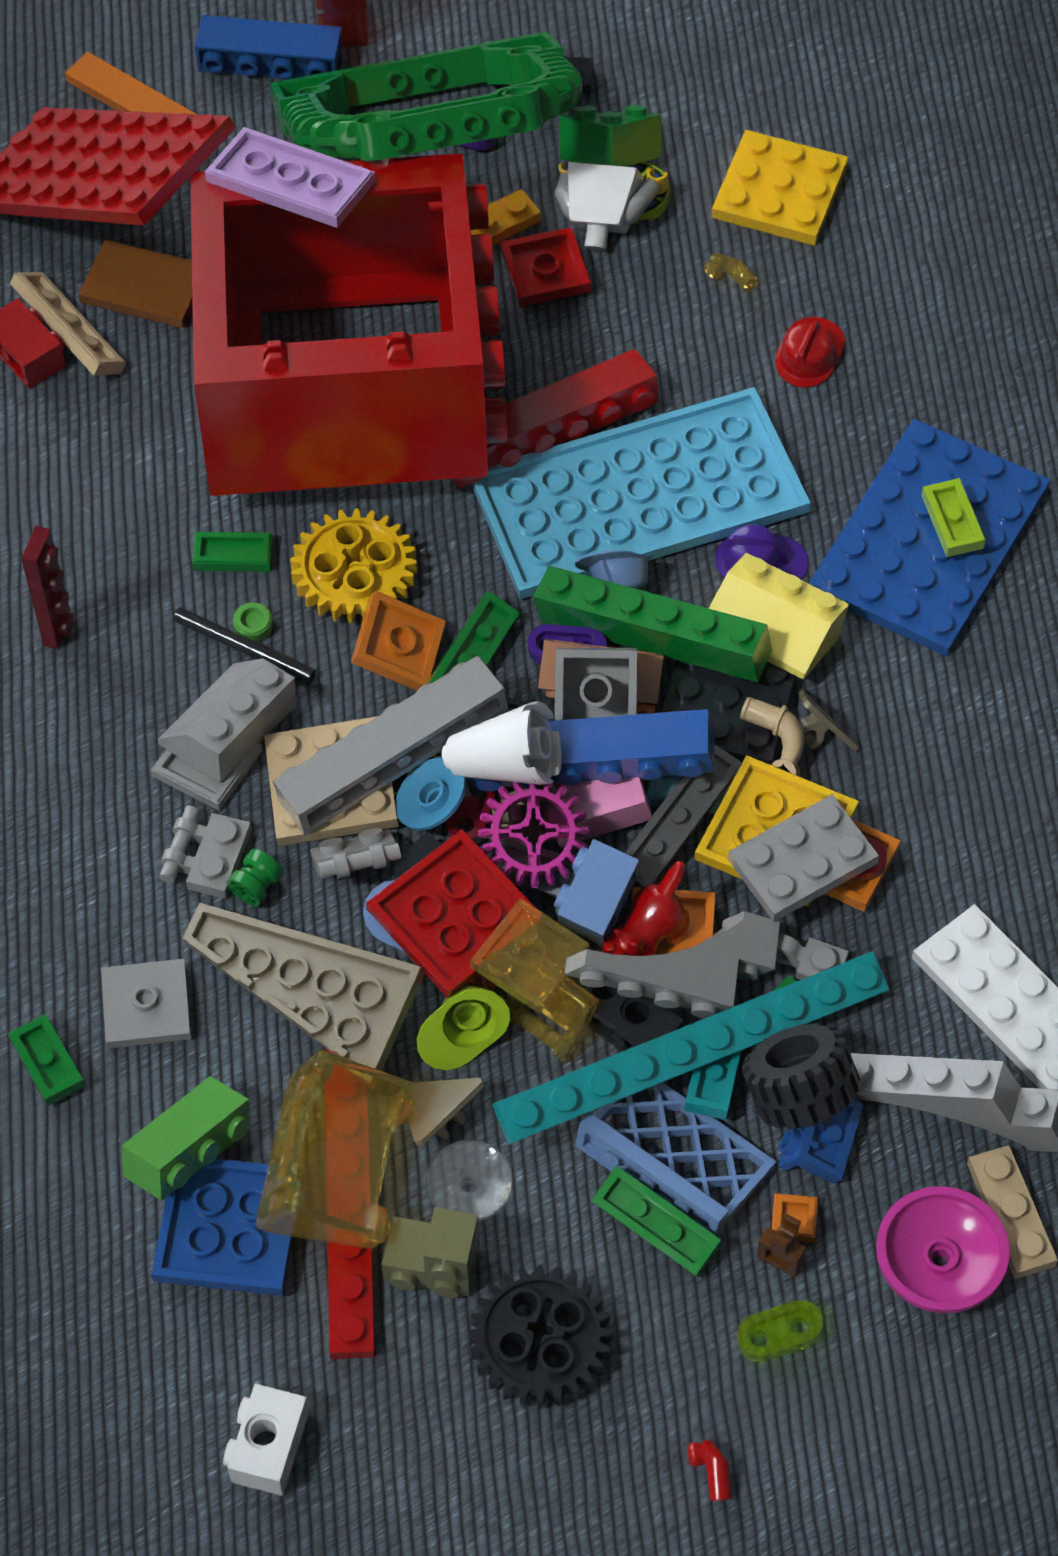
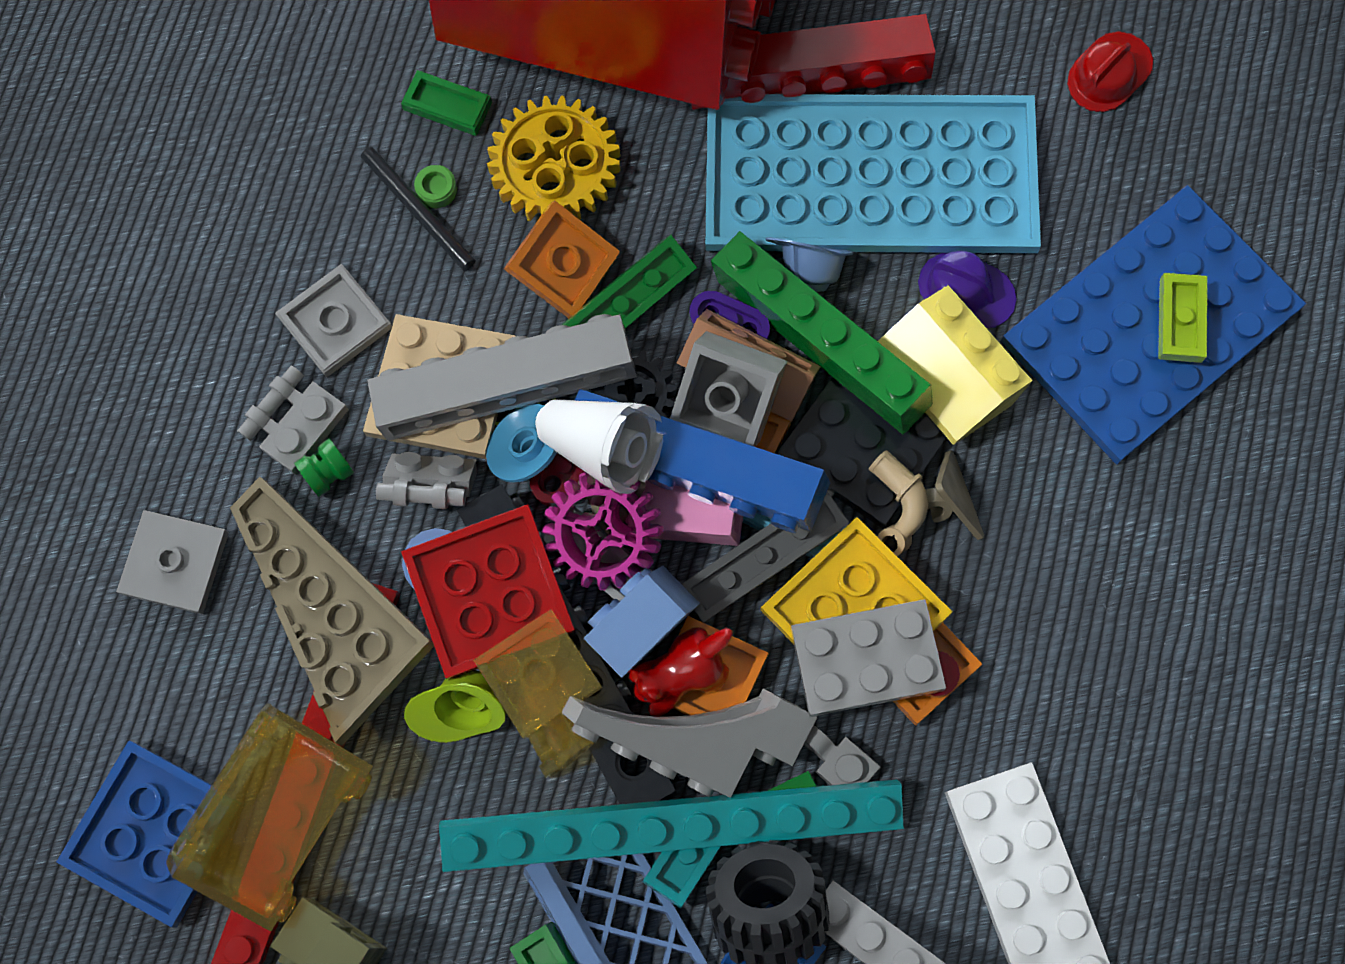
camera: 25 degrees right, 15 degrees up
(46, 1060) = (53, 589): green plate -> none
(47, 587) = (227, 90): dark red plate -> none
(185, 1138) = (138, 734): bright green brick -> none
(231, 717) = (368, 286): light grey slope -> none
(437, 1104) = (396, 786): dark tan piece -> none
(466, 1163) = (375, 875): clear dish -> none

